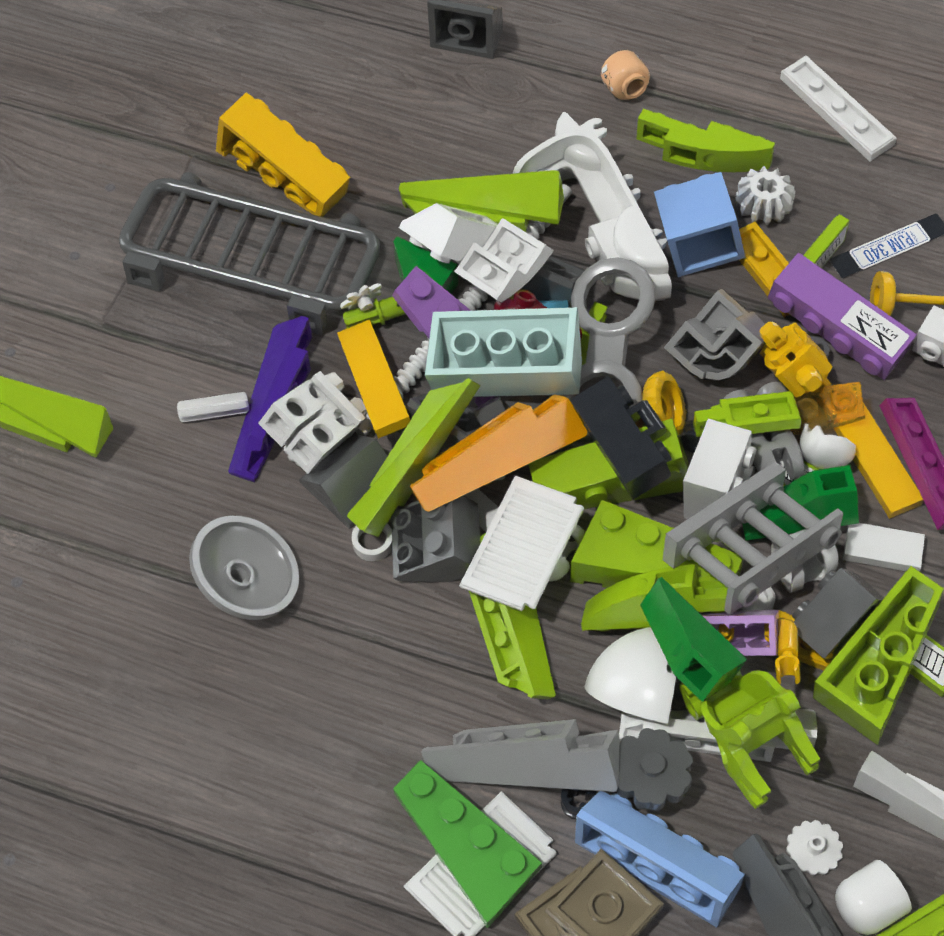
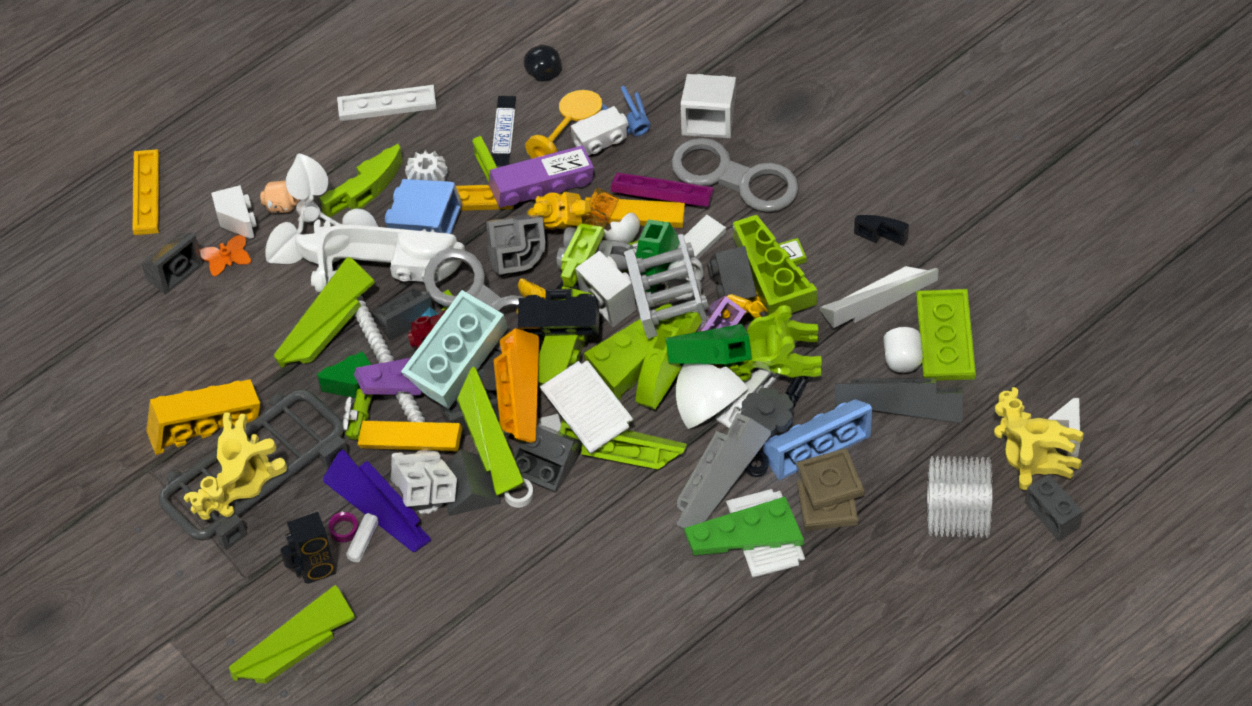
camera: 60 degrees left, 5 degrees down
(143, 354) = (308, 549): none -> black piece
(209, 226) = (243, 470): none -> light yellow animal
(215, 367) = (343, 516): none -> magenta piece
(254, 557) = (498, 562): light grey dish -> none
(448, 231) = (344, 337): white slope -> none
(504, 261) = (388, 318): white slope -> none
(518, 71) = (226, 255): none -> orange piece
(576, 42) = (232, 211): none -> white slope
(632, 71) = (302, 182): none -> white plant
(716, 789) = (796, 388): none -> black axle
(814, 847) = (854, 366): white piece -> none

